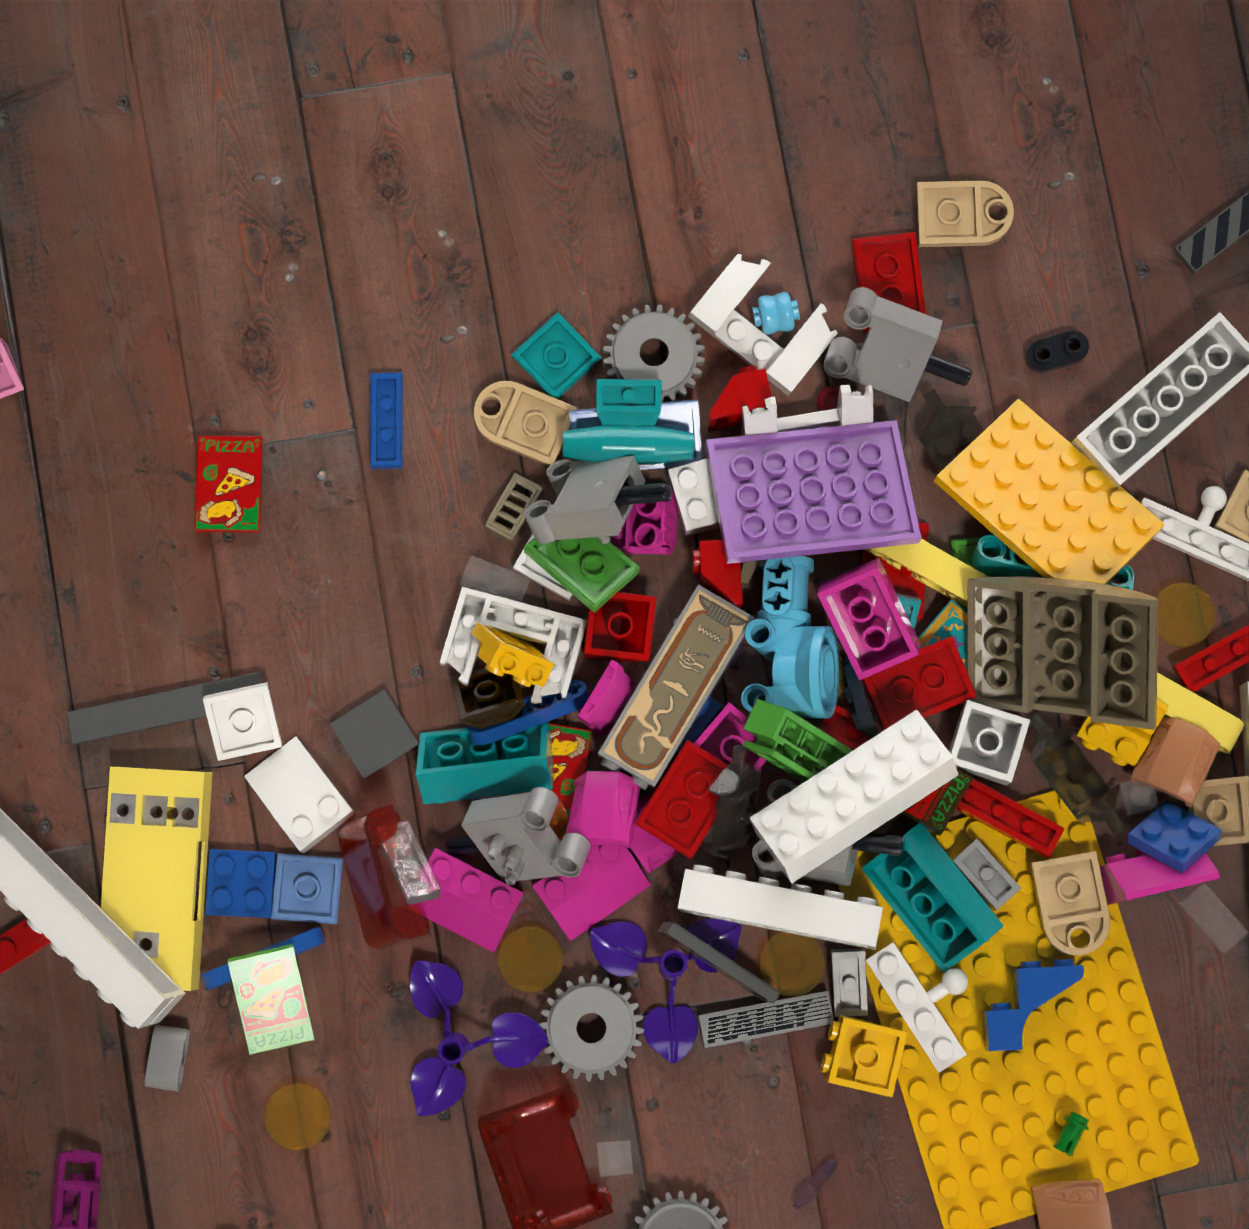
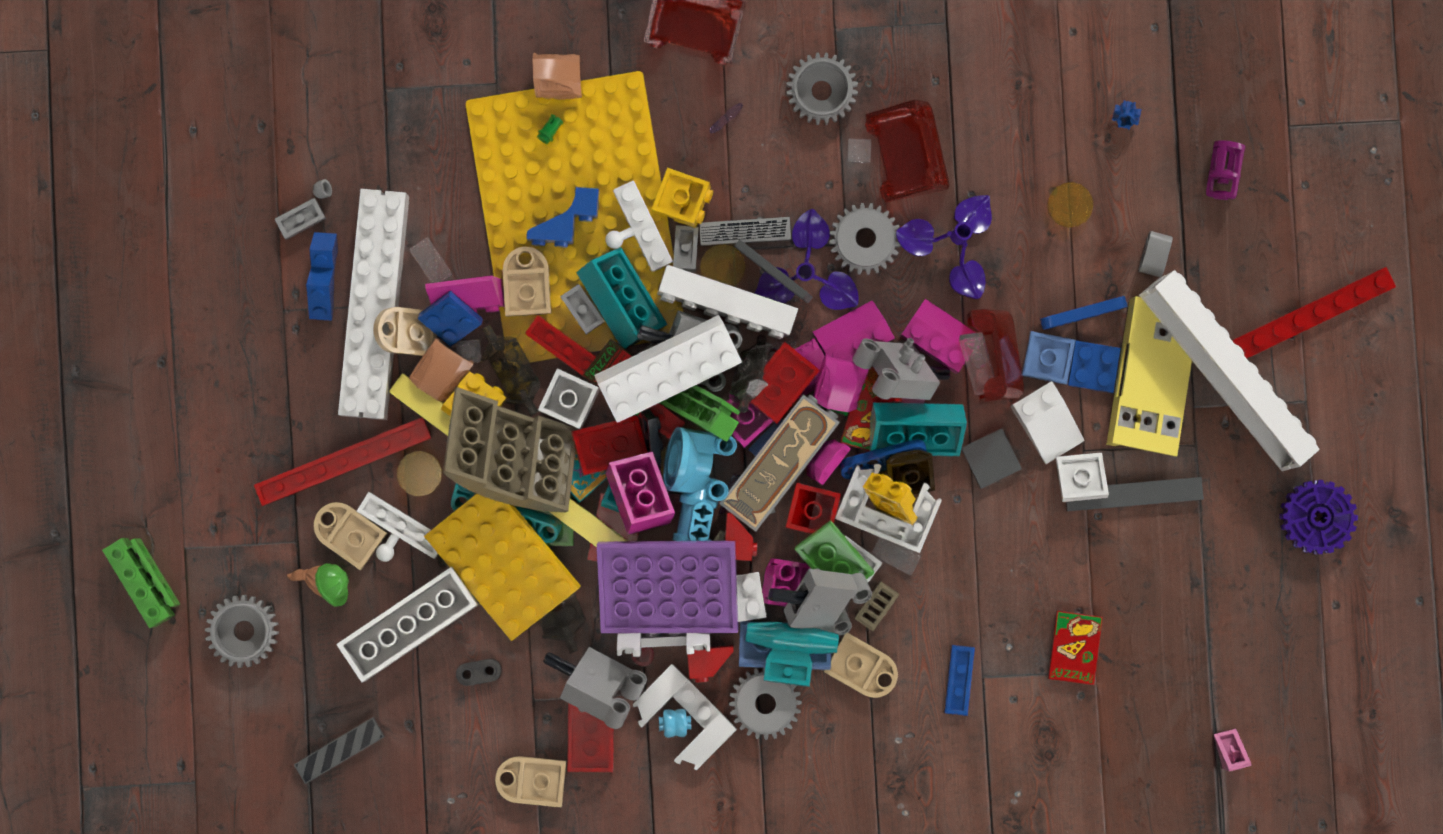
camera: 165 degrees left, 5 degrees up
(271, 999) = (1081, 284): tile -> none
(530, 959) = (901, 291): clear yellow tile -> none
(556, 357) = (834, 711): teal tile -> none

